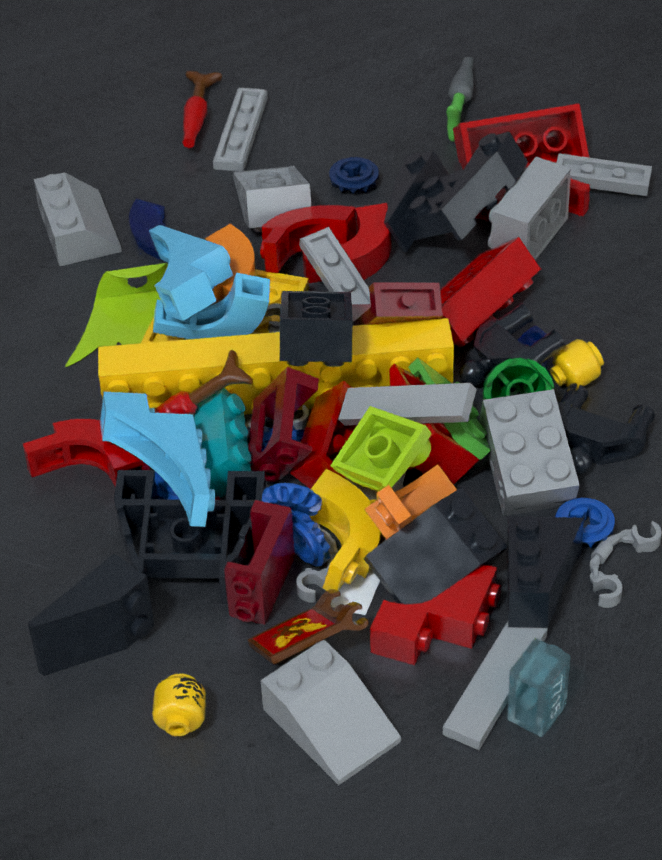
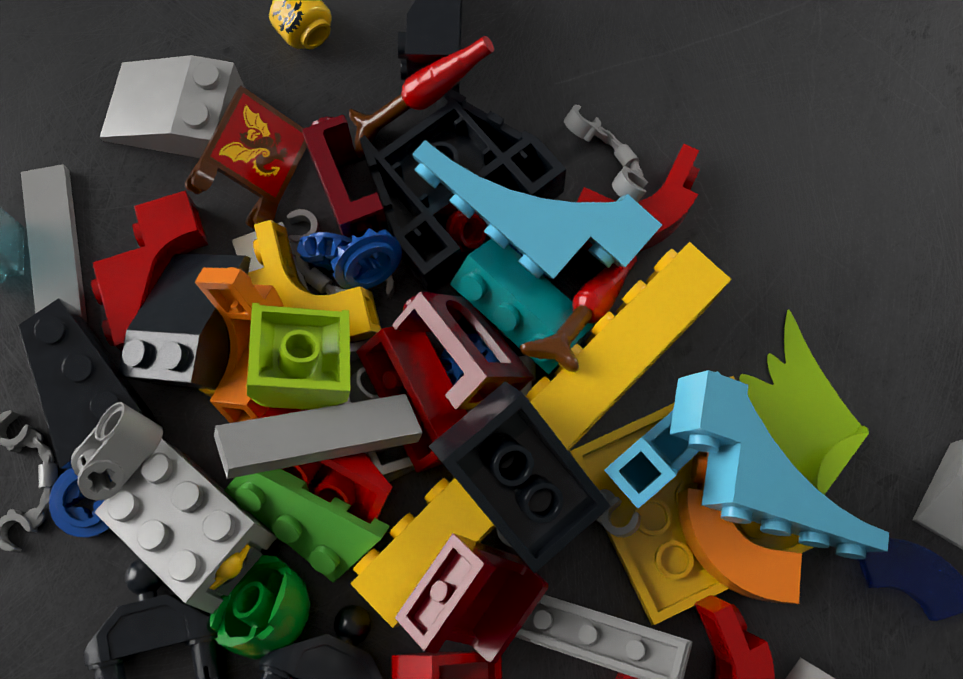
camera: 135 degrees right, 30 degrees up
(66, 516) = (630, 178): none -> light grey piece
(159, 574) = (421, 90): none -> red piece
(546, 497) = (114, 449): none -> light grey piece

